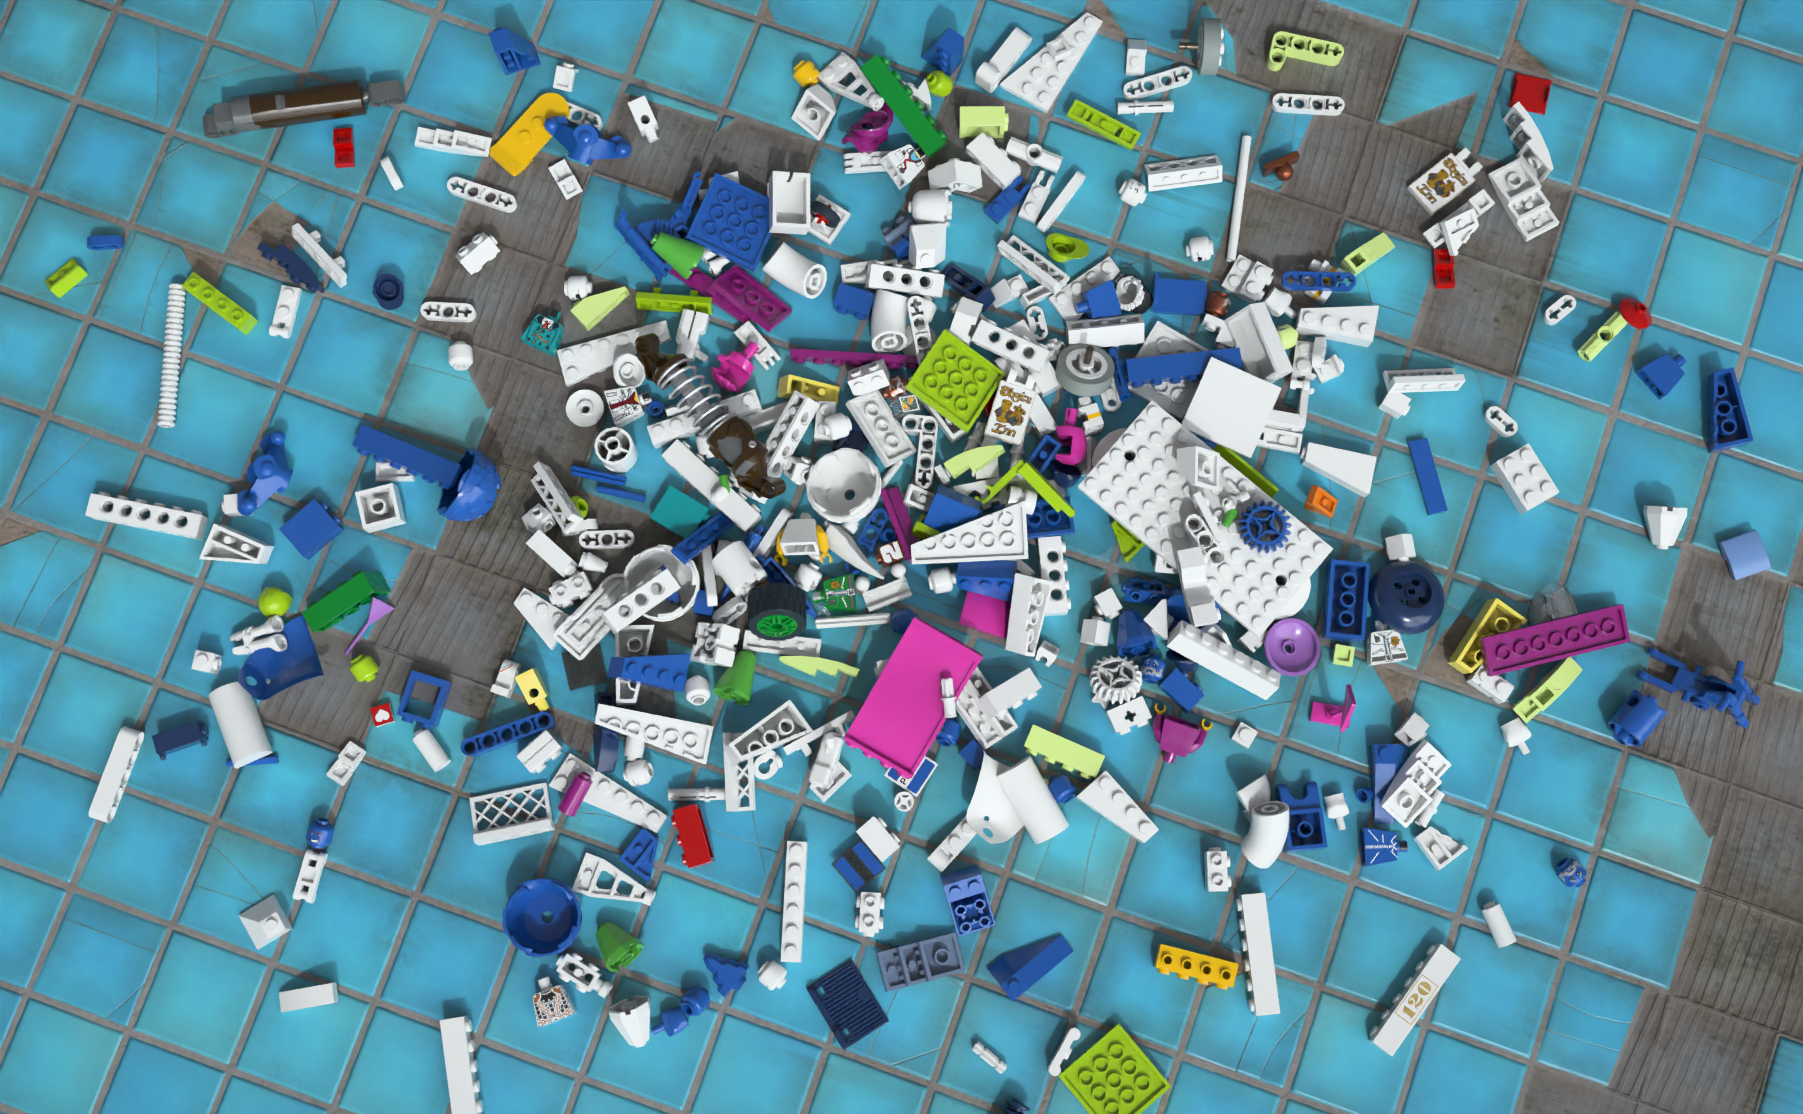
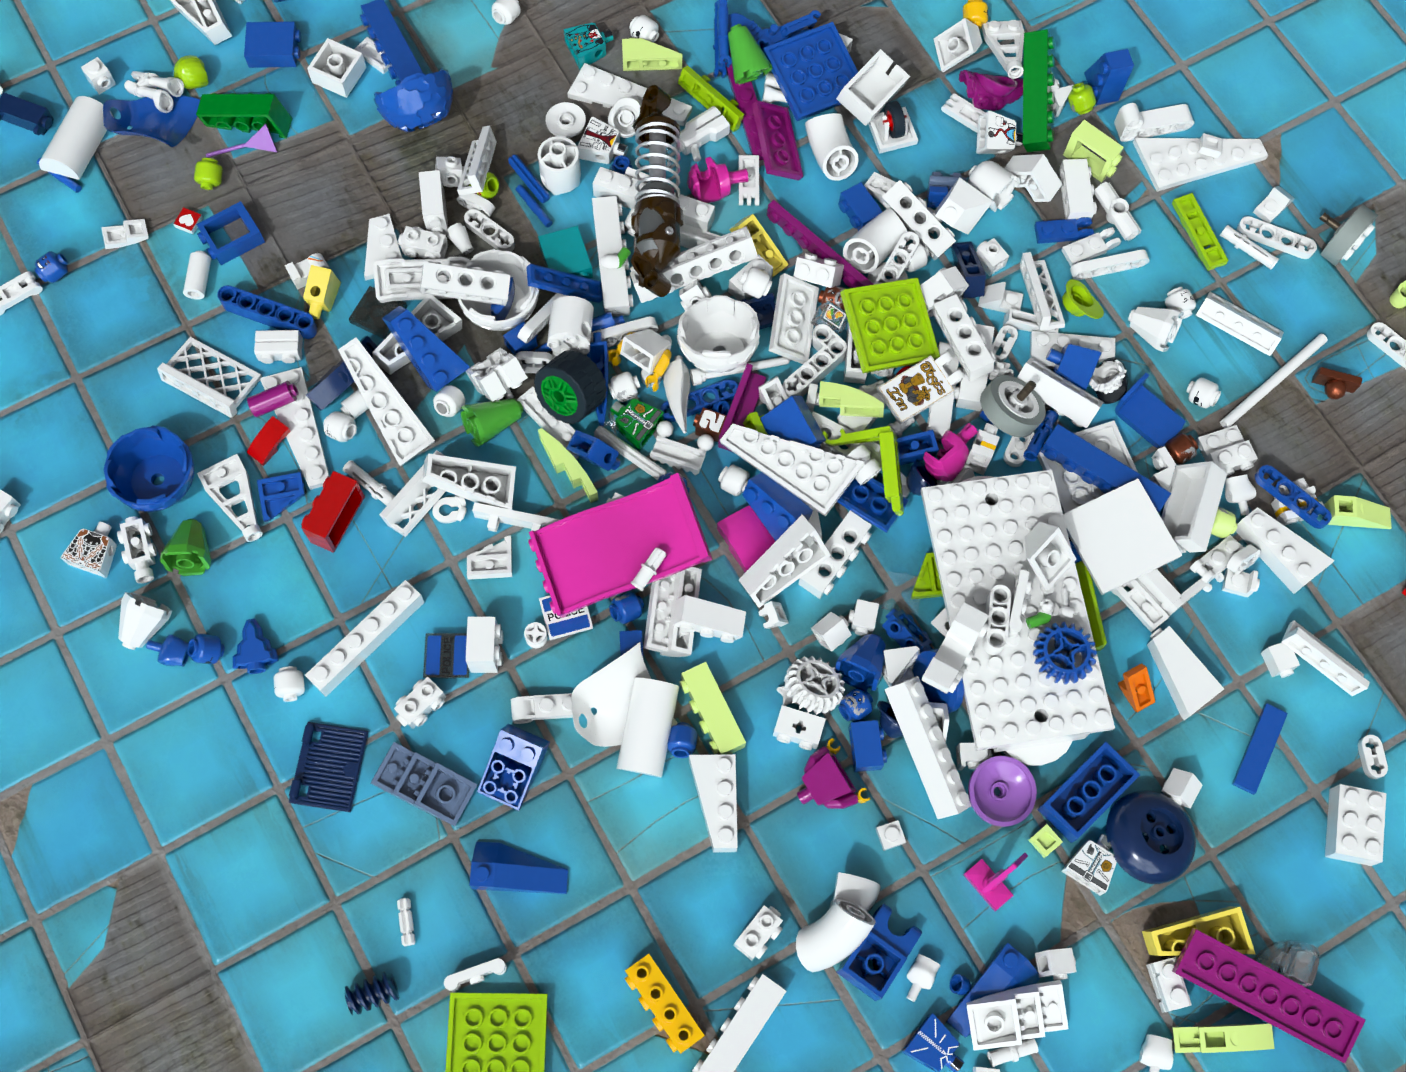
camera: 35 degrees right, 10 degrees down
(597, 824) = (267, 440): none -> red slope
(826, 760) = (499, 543): white piece -> none
(839, 642) = (599, 453): none -> blue torso
(975, 263) = (992, 256): none -> white brick
(1129, 224) = (1156, 325): none -> white cone

